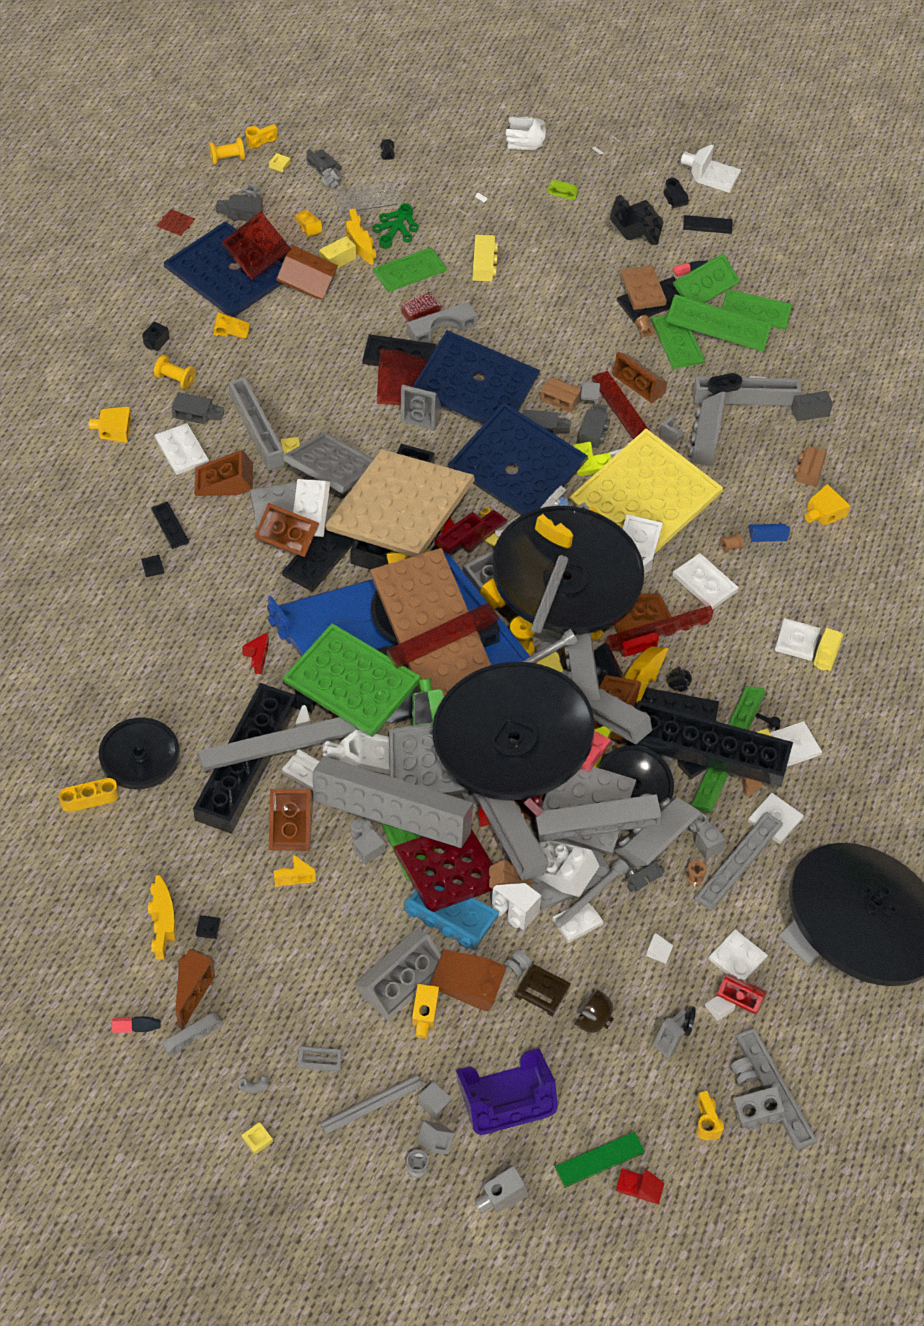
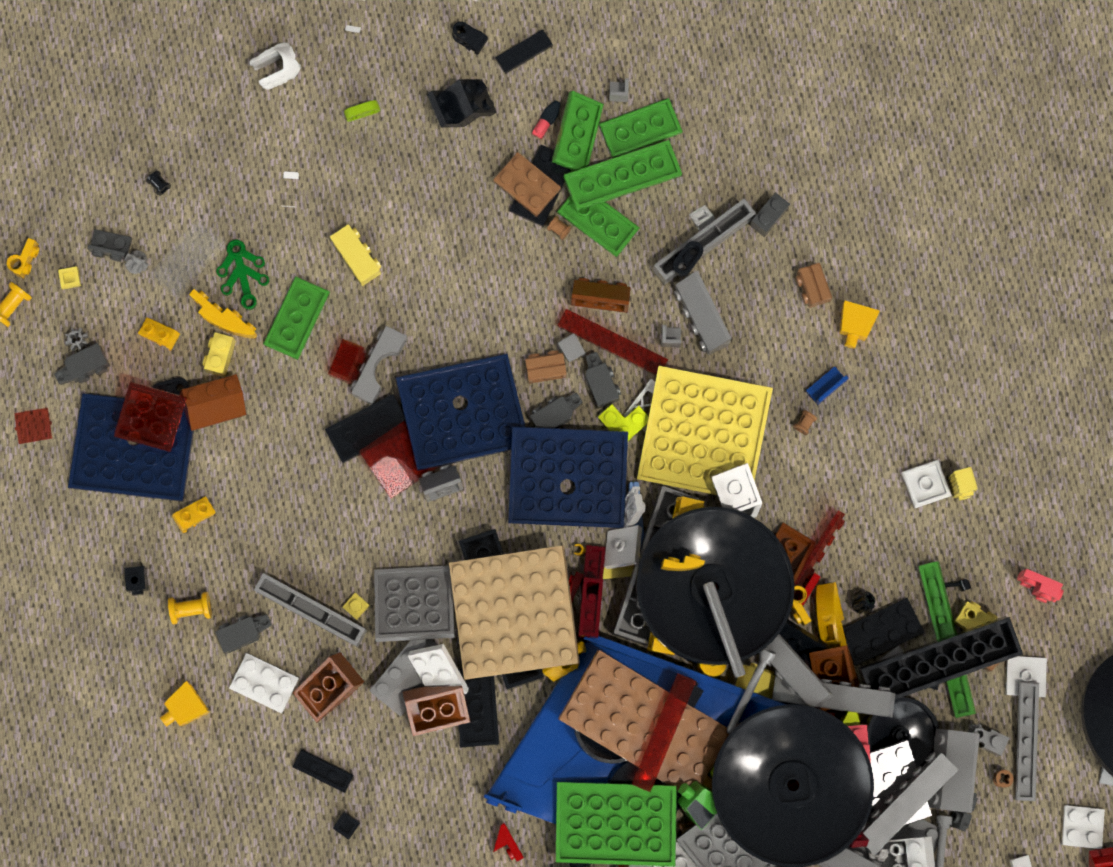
camera: 35 degrees left, 25 degrees up
(626, 634) = (800, 614): none -> yellow plate
(705, 581) = (812, 481): white plate -> none
(757, 280) = (619, 91): none -> light grey panel
(804, 744) = (993, 591): white plate -> none
(841, 756) = (1044, 587): none -> coral plate

